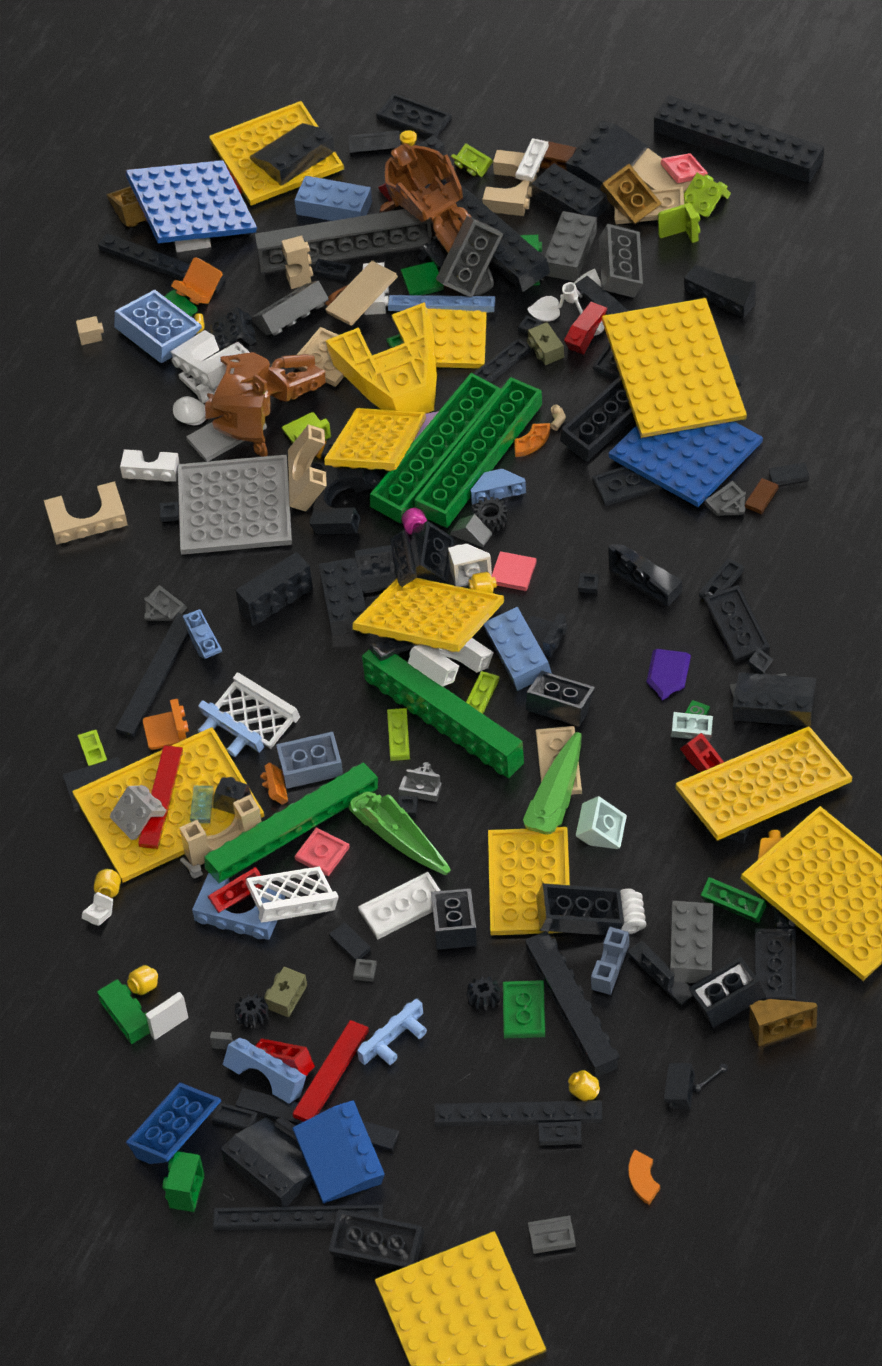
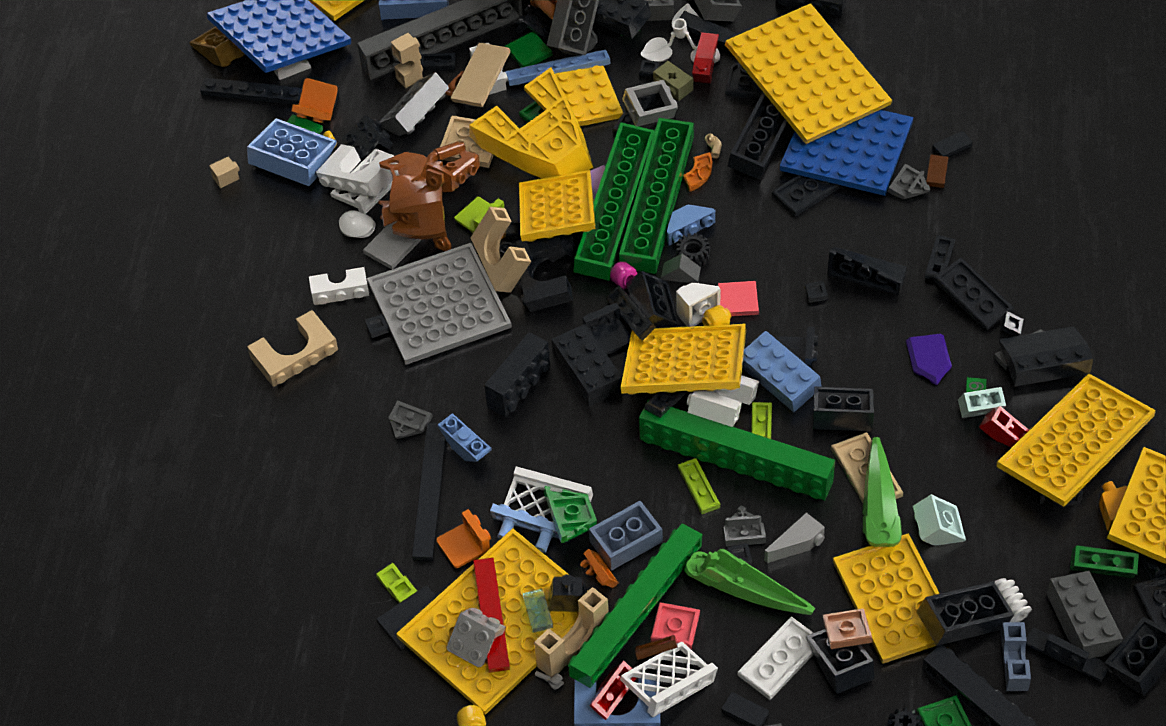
camera: 20 degrees left, 0 degrees up
(266, 726) = (570, 512): none -> green wing
(296, 864) = (656, 647): none -> reddish brown tile
(462, 805) = (797, 539): none -> light grey slope
(468, 894) = (847, 628): none -> nougat tile
(517, 373) = (635, 110): none -> light grey window

